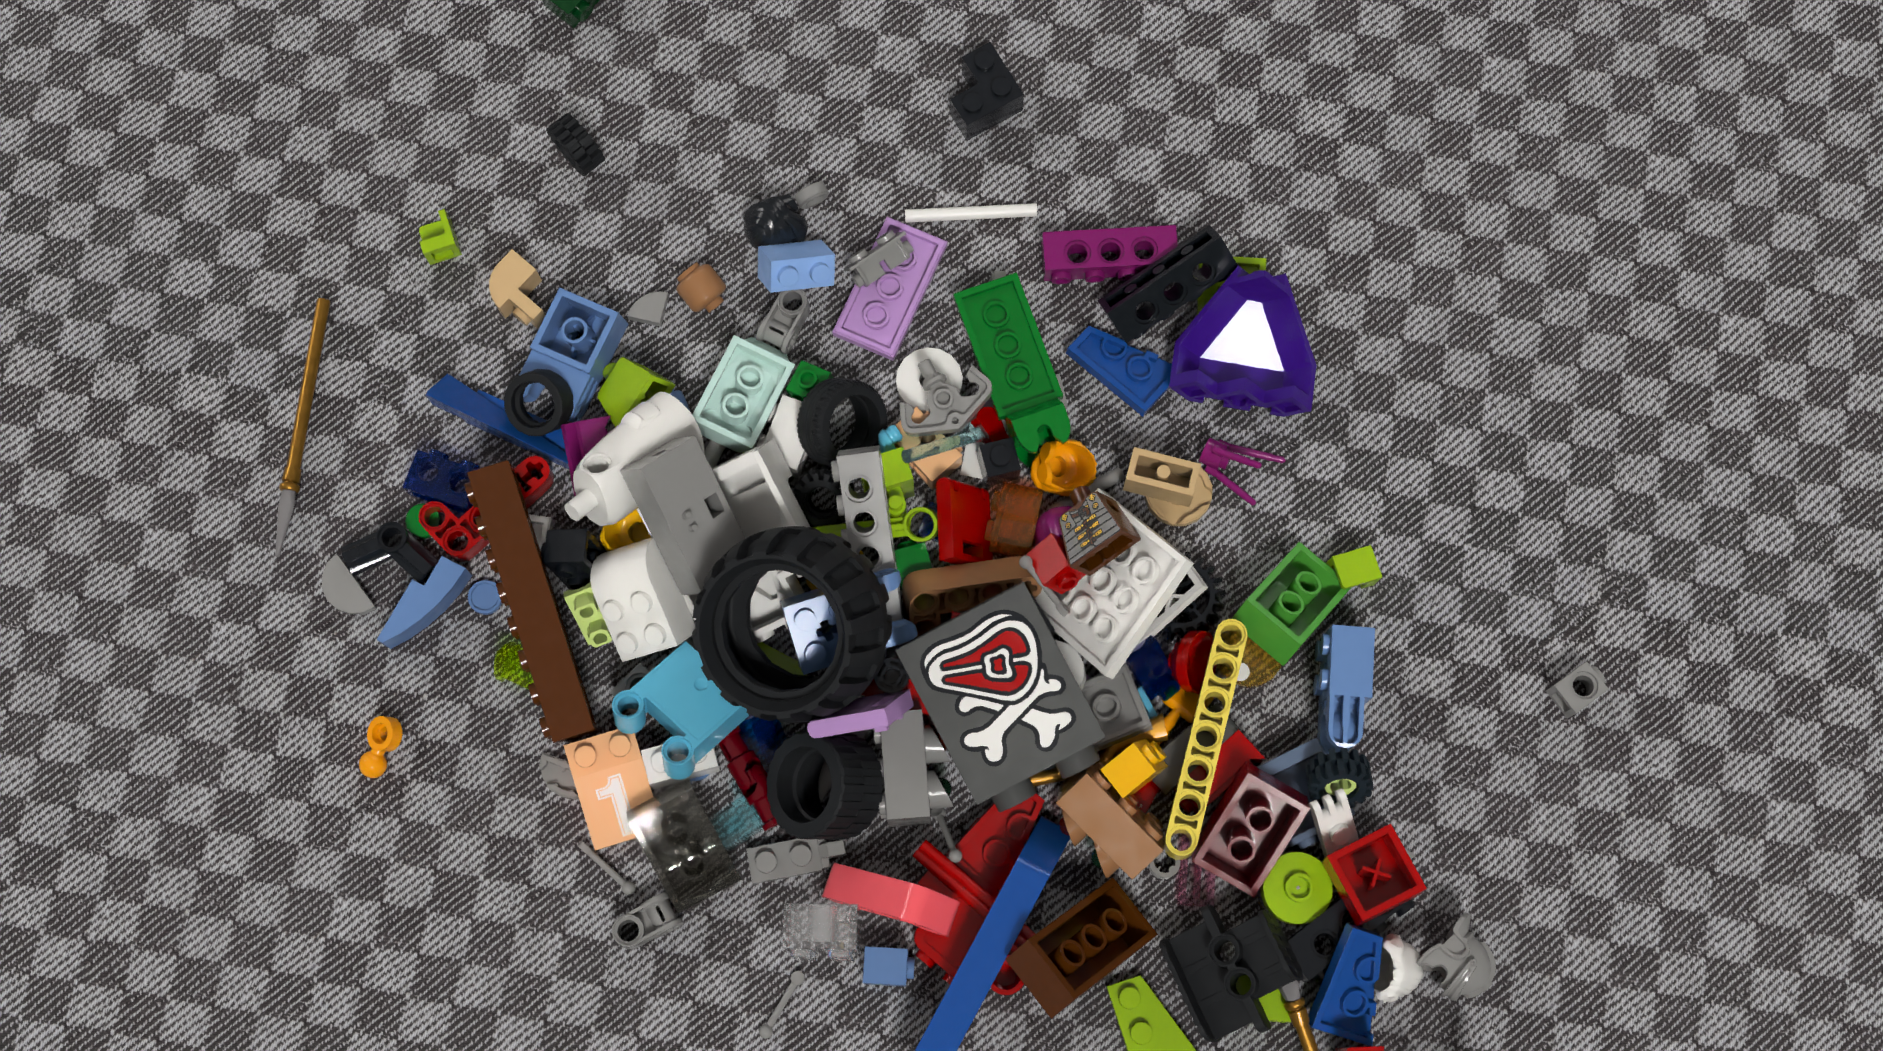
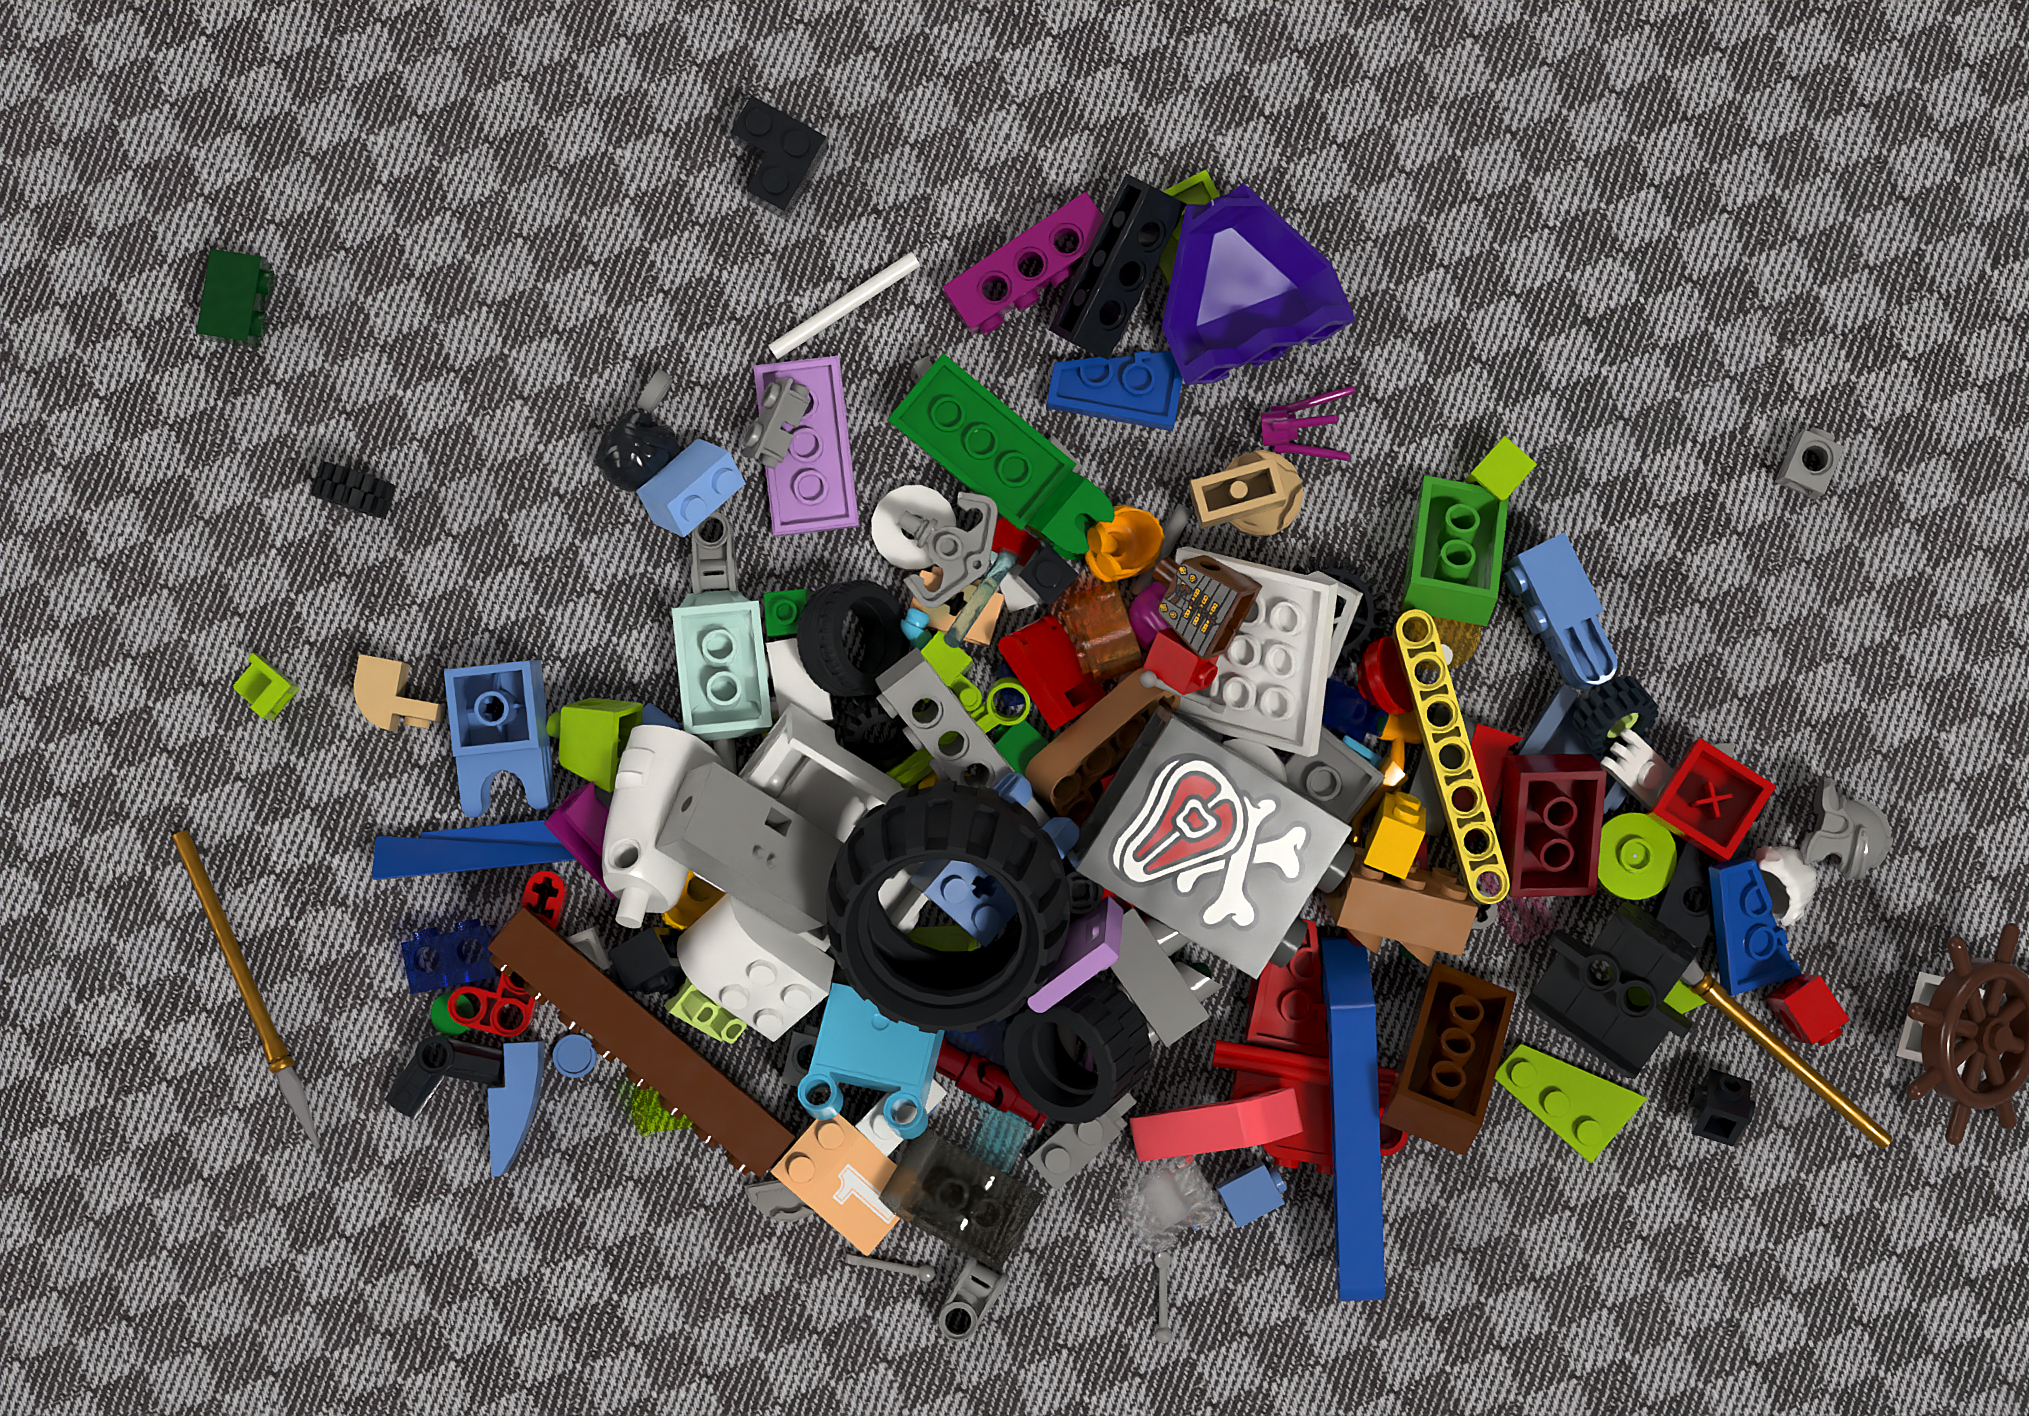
camera: 30 degrees left, 10 degrees up
(343, 589) = (415, 1140): light grey tile -> none
(383, 736) = (563, 1271): light orange plate -> none
(517, 412) = (493, 840): black tyre -> none
(649, 308) = (553, 627): light grey tile -> none
(701, 287) = (597, 571): medium nougat head -> none
(955, 855) = (1256, 1037): light grey hinge -> none

